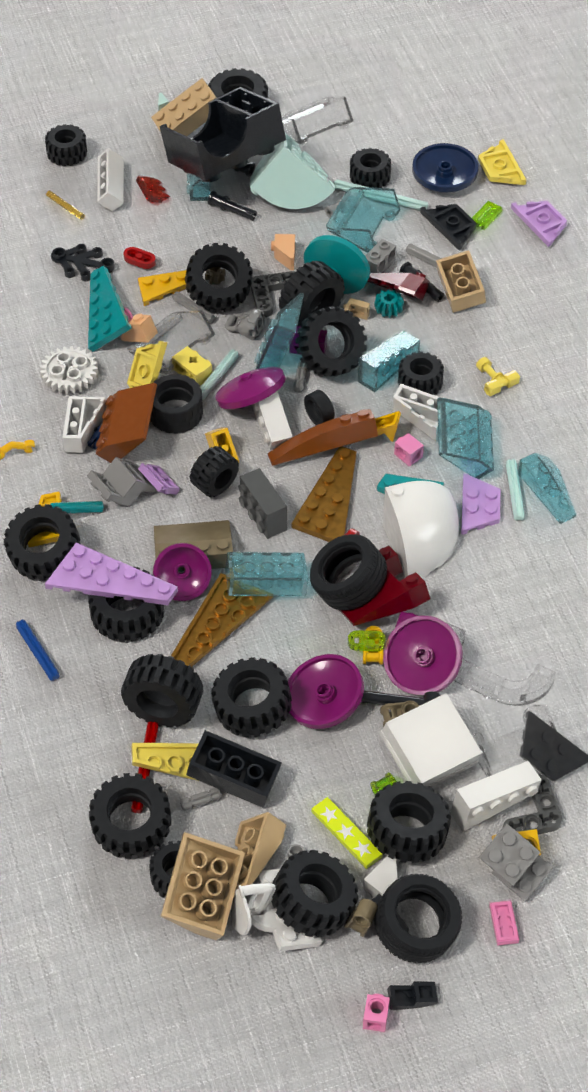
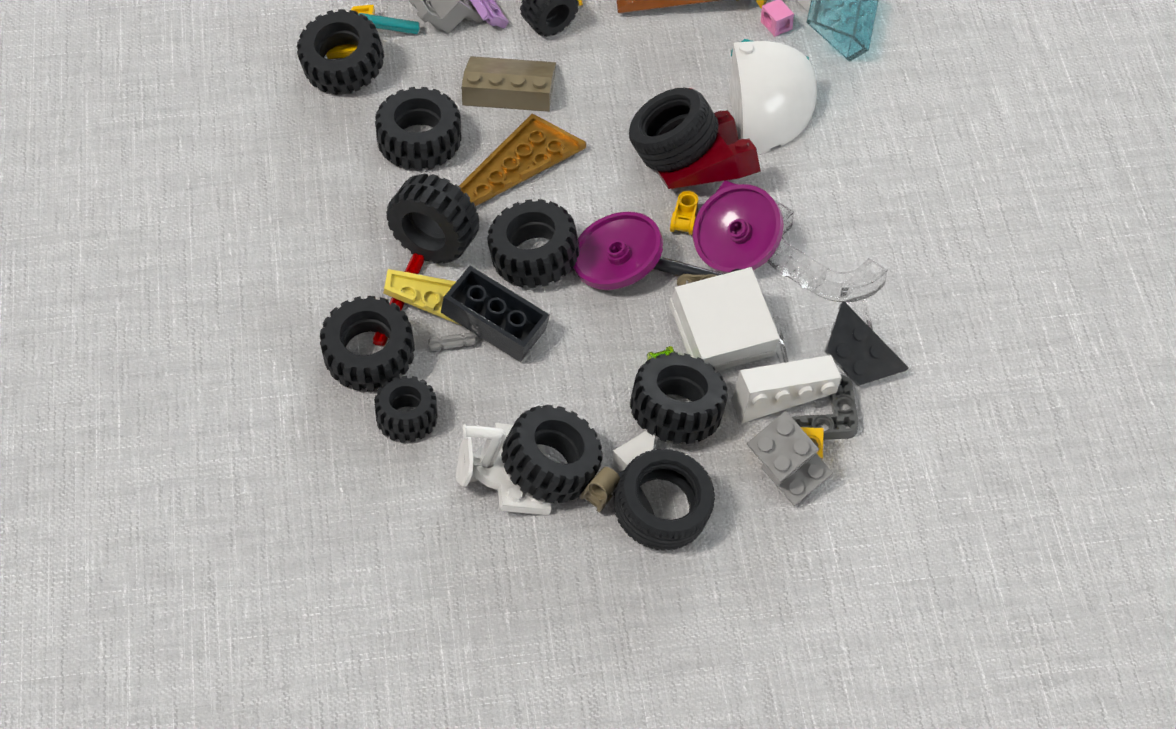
camera: 10 degrees right, 0 degrees up
(37, 649) = (310, 163): blue axle -> none
(106, 577) = (400, 94): lavender wing -> none
(196, 574) = (471, 103): magenta dish -> none
(202, 886) = (426, 425): tan slope -> none
(259, 840) = (503, 394): tan wedge -> none
(263, 503) = (596, 48): dark grey brick -> none
(266, 574) = (582, 120): clear light blue brick -> none
(327, 505) = (676, 55): pearl gold wing -> none
(346, 832) = (608, 402): neon yellow tile -> none
(366, 640) = (677, 204): clear neon green beam -> none
(372, 1020) = (594, 601): bright pink brick -> none
(412, 996) = (644, 583): black slope -> none
(479, 504) = (844, 86): lavender wing -> none
(504, 923) = (764, 523): bright pink plate -> none
(515, 491) = (889, 76): light aqua axle -> none
(548, 485) = (928, 76): clear light blue wedge -> none

